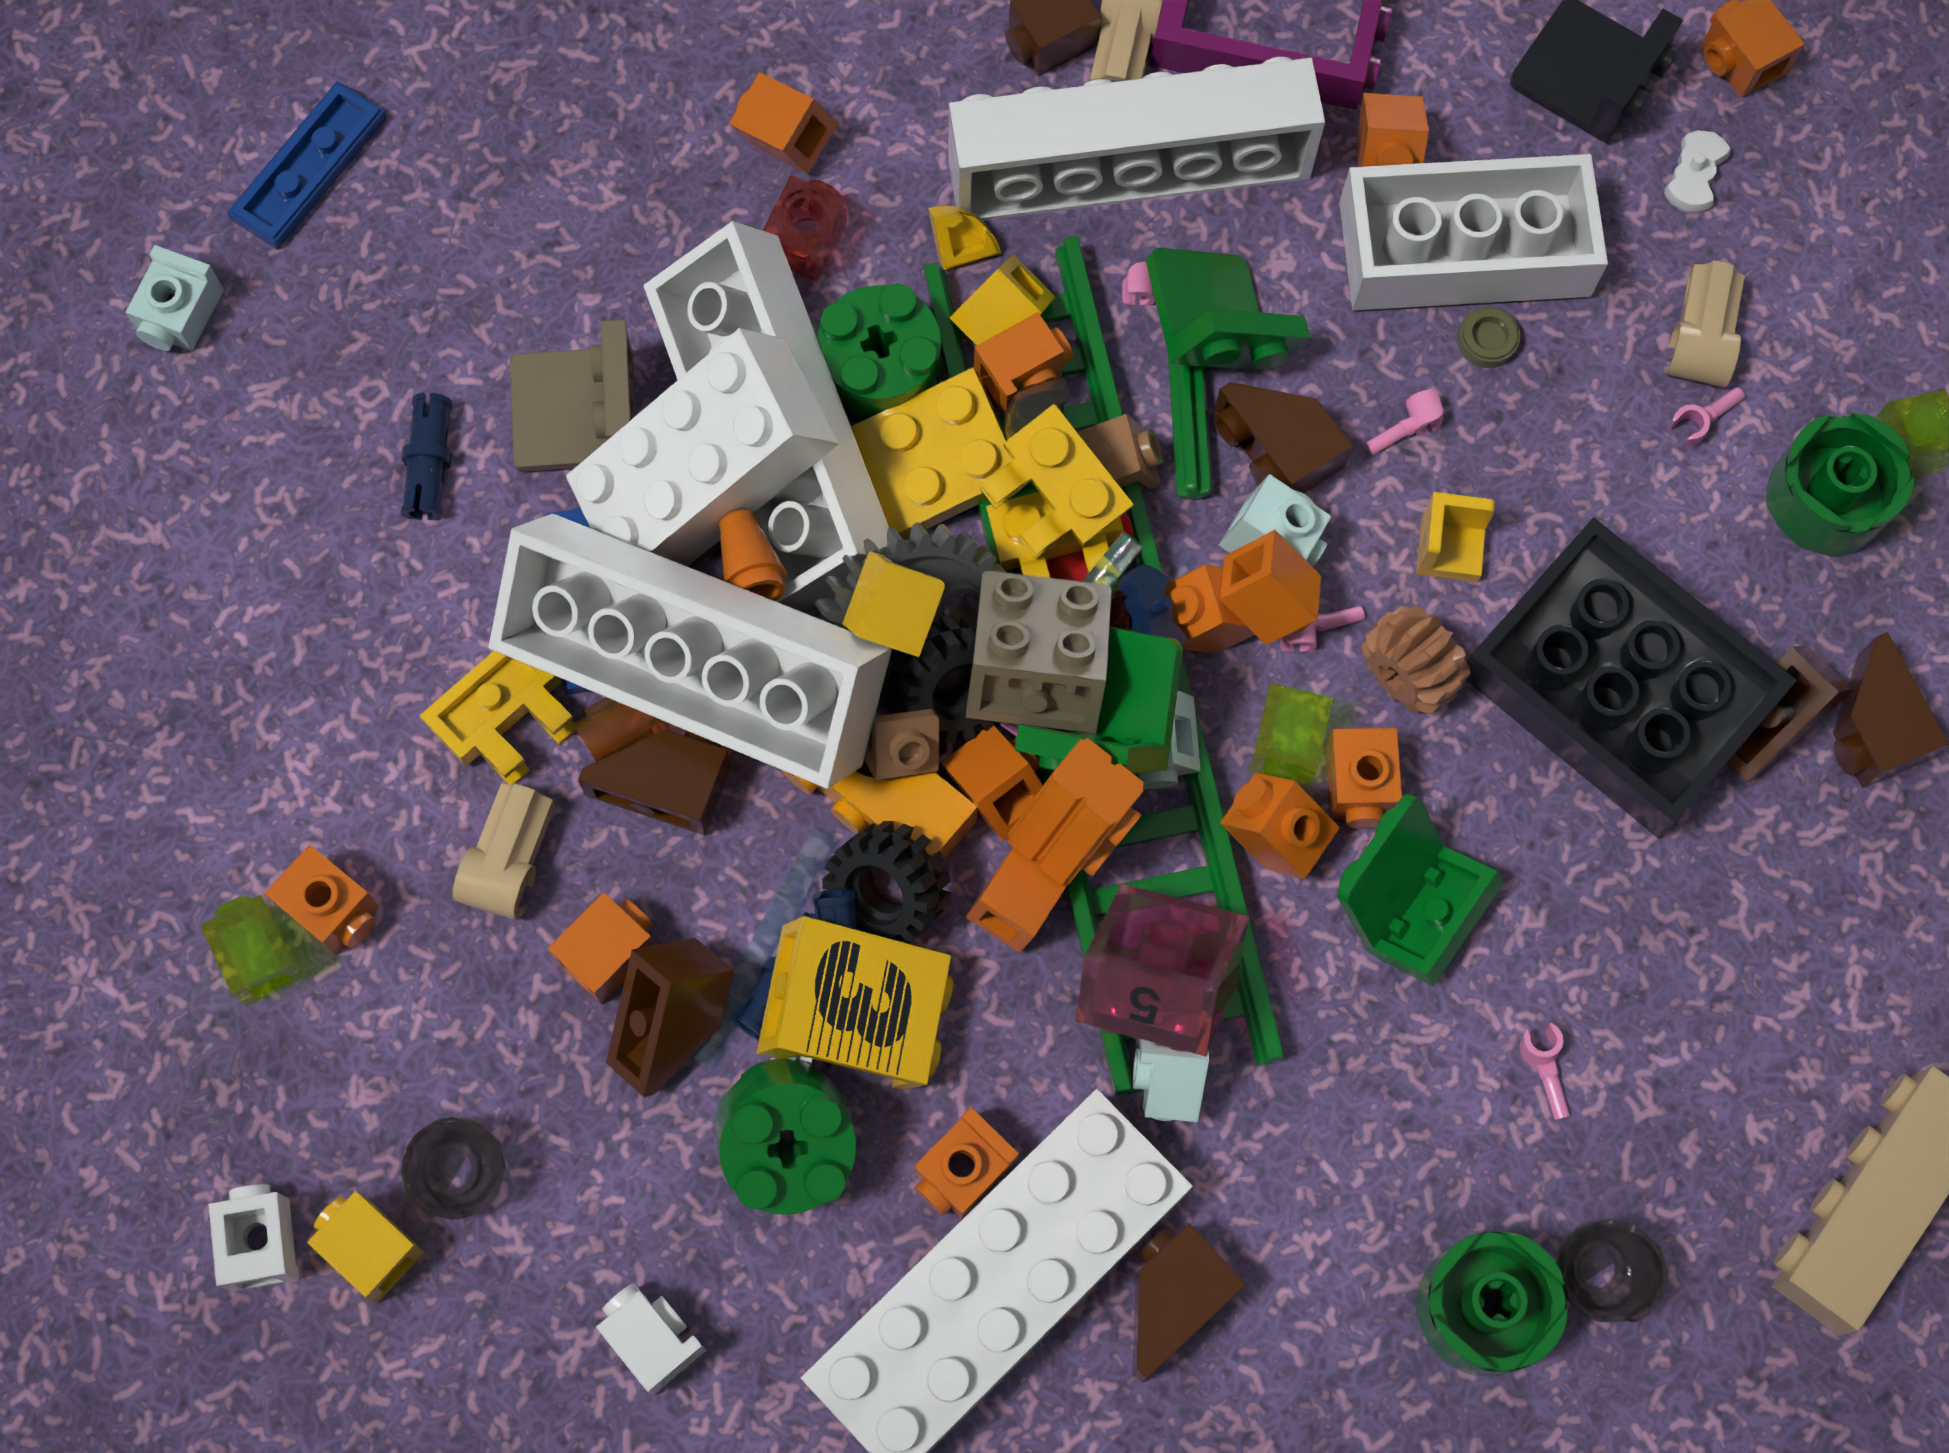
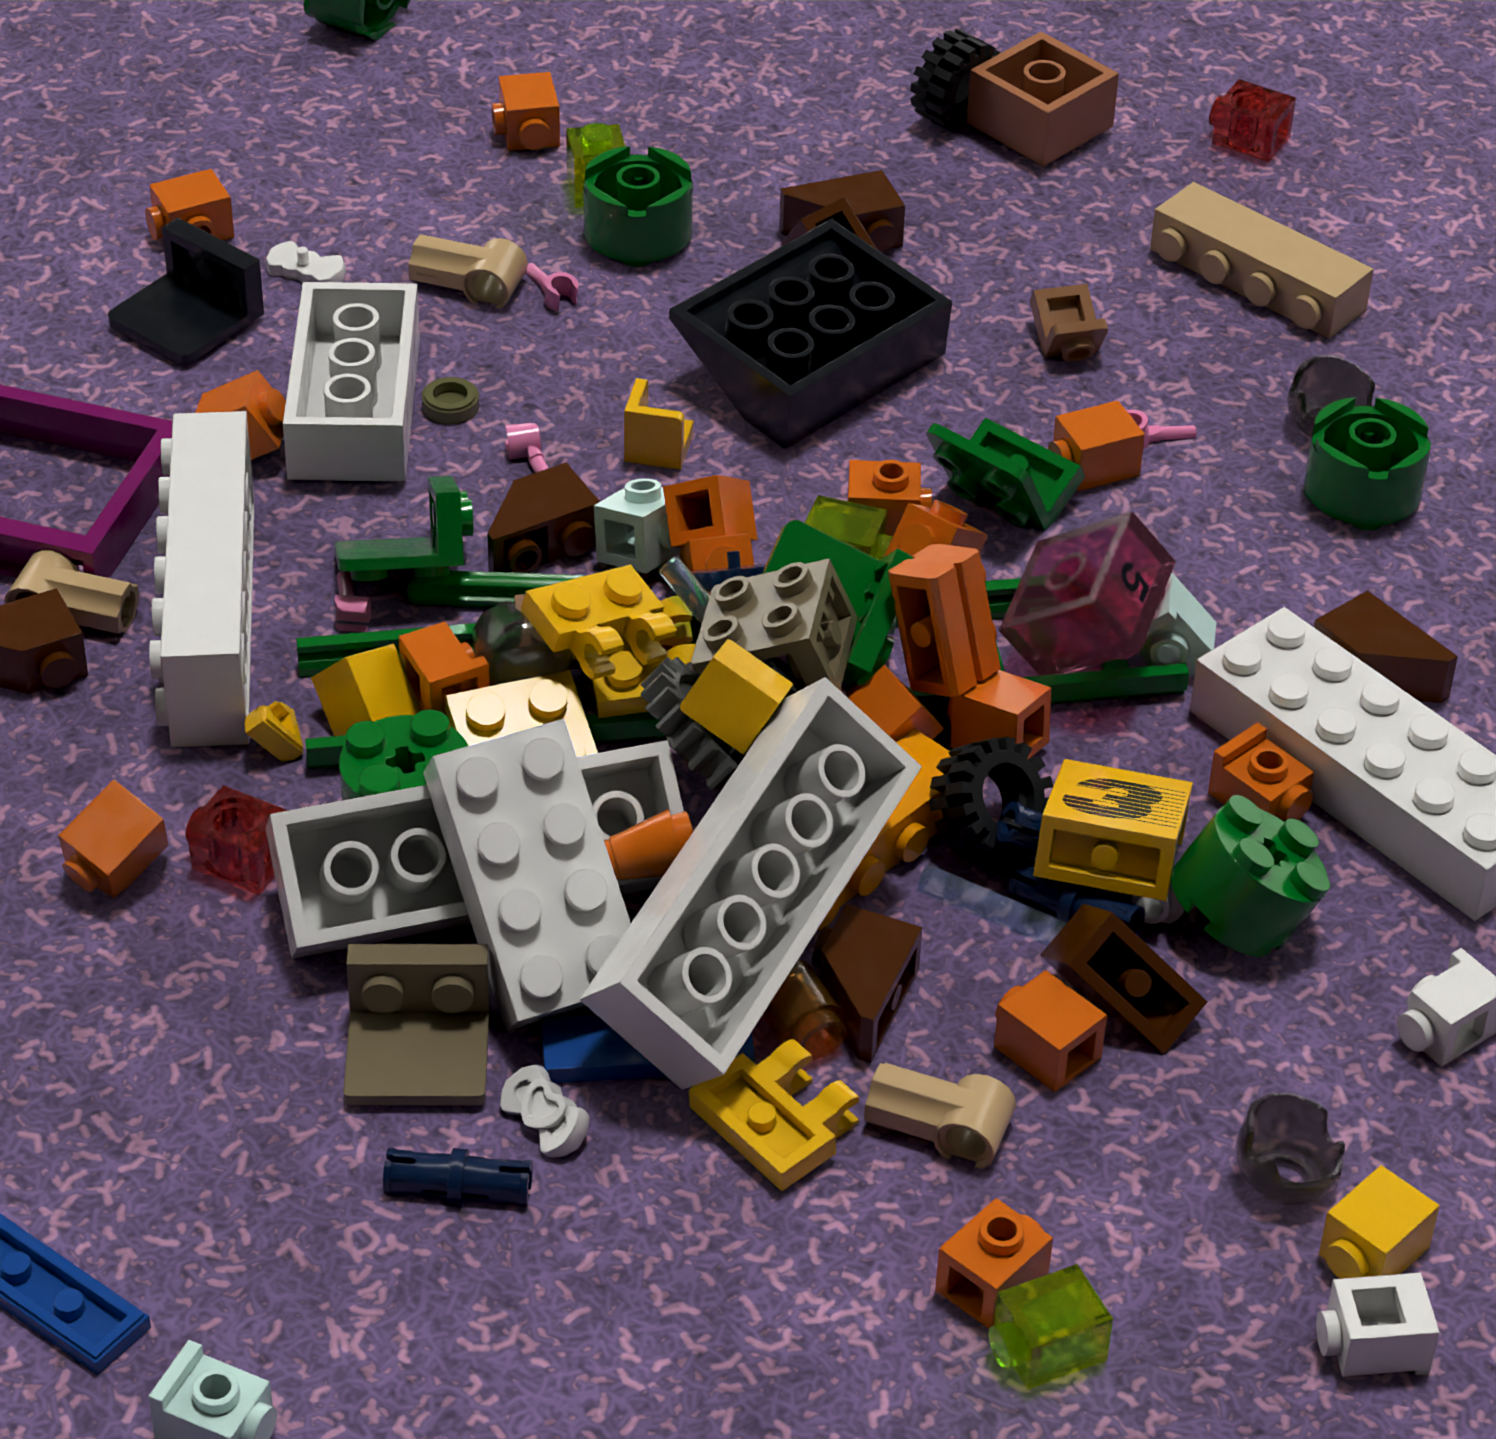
camera: 85 degrees left, 30 degrees down
(499, 517) = (545, 1109): none -> white piece
(1415, 659) = (780, 450): nougat gear -> none
(1492, 997) = (1100, 441): none -> orange brick
(1718, 969) = (1067, 322): none -> medium nougat bracket

